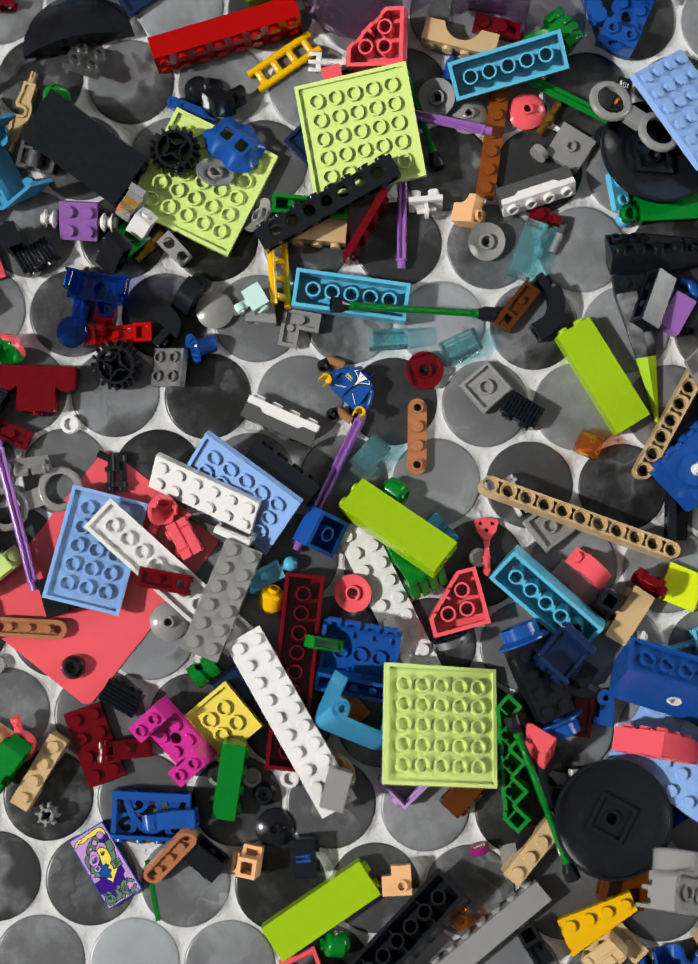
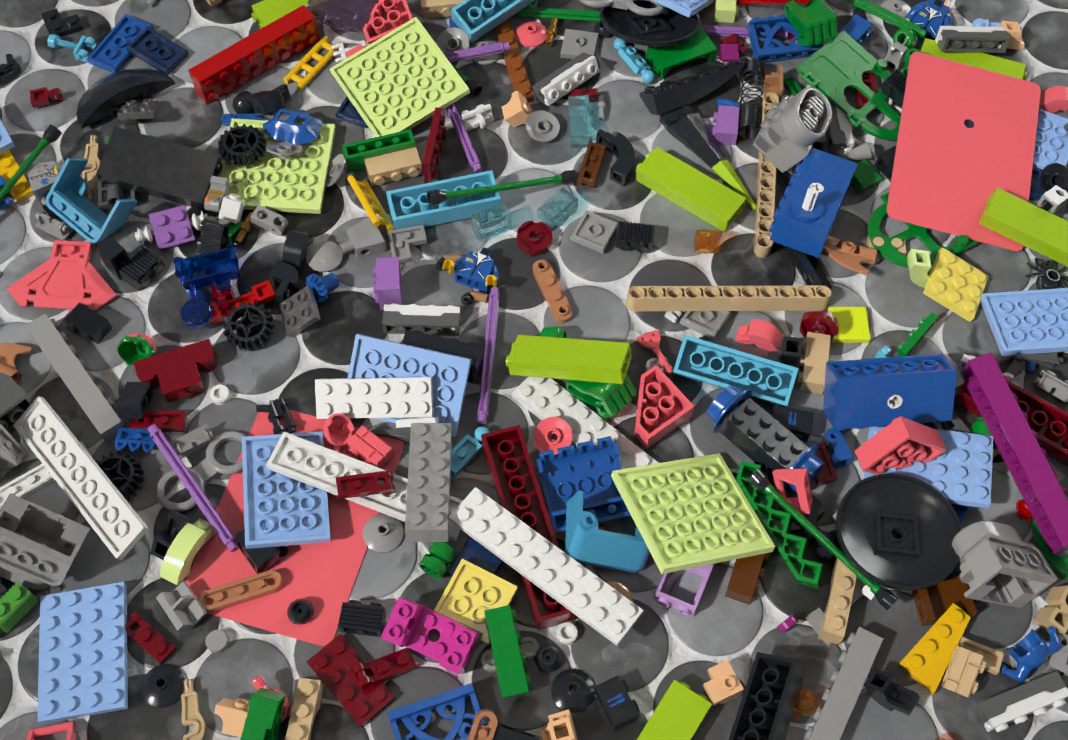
camera: 25 degrees left, 25 degrees down
(171, 819) = (459, 715): blue leg -> none
(254, 299) = (357, 226): light aqua brick -> none
(262, 372) = (387, 281): none -> medium lavender brick
(271, 599) = (477, 469): yellow head -> none
(320, 531) = (499, 390): blue brick -> none
(322, 213) = (392, 134): black brick -> none
(323, 643) = (544, 481): green piece -> none
(336, 789) = (618, 600): light grey brick -> none
(370, 455) = (517, 317): clear light blue brick -> none
(451, 640) = (665, 439): flat silver tile -> none
(539, 153) = (555, 54): light grey tile -> none
(563, 653) = (774, 399): dark blue panel -> none
(632, 213) = (650, 68): green plate -> none
(653, 300) = (703, 116): brick -> none

